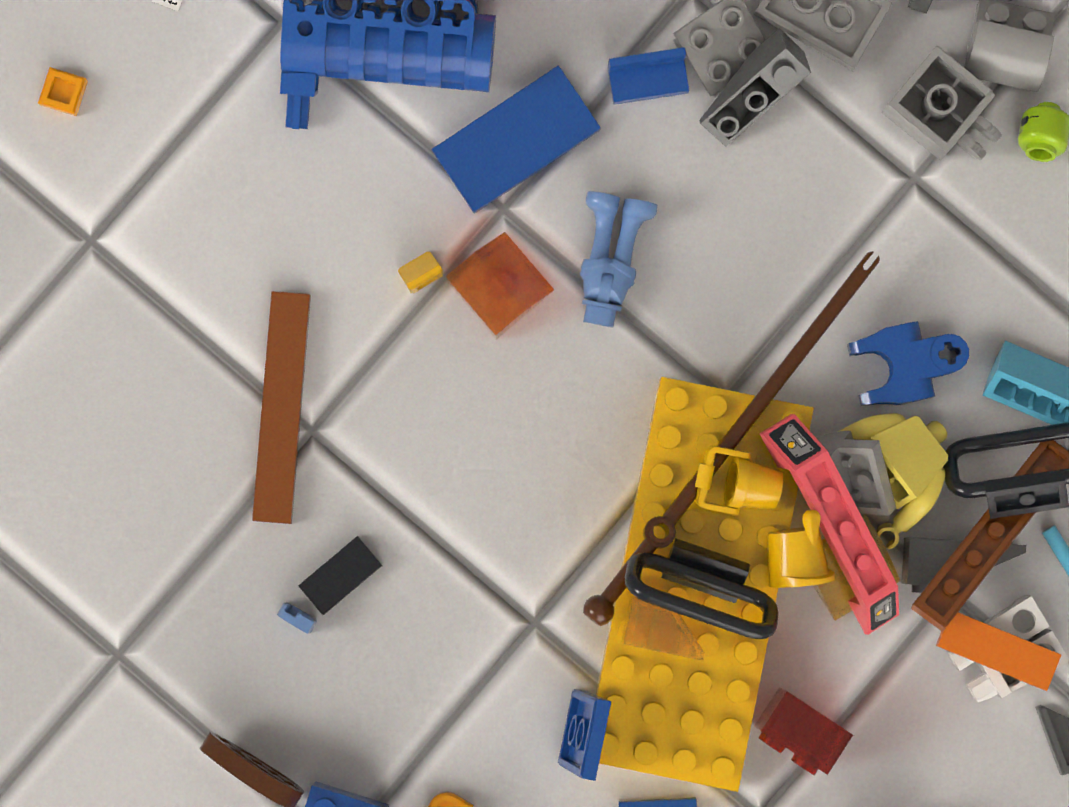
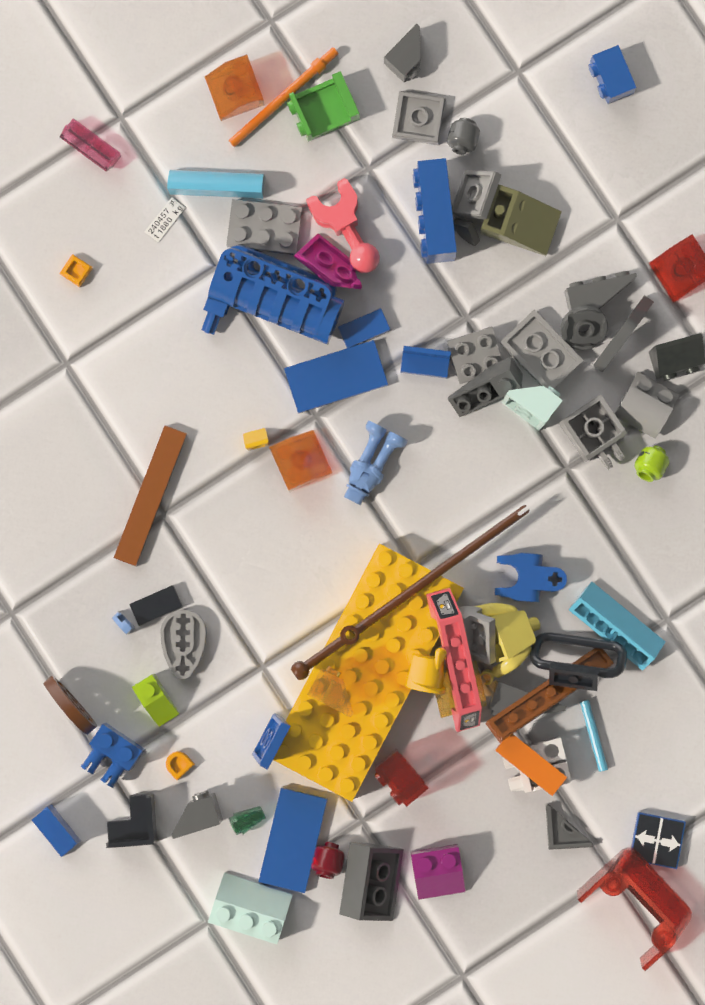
camera: 25 degrees right, 0 degrees up
(377, 620) = (170, 638): none -> light grey piece
(383, 723) = (155, 700): none -> lime slope
(537, 52) = (364, 328): none -> blue tile
(707, 573) = (369, 666): black bar -> none
(745, 485) = (410, 621): yellow piece -> none
(838, 91) = (533, 404): none -> light aqua slope

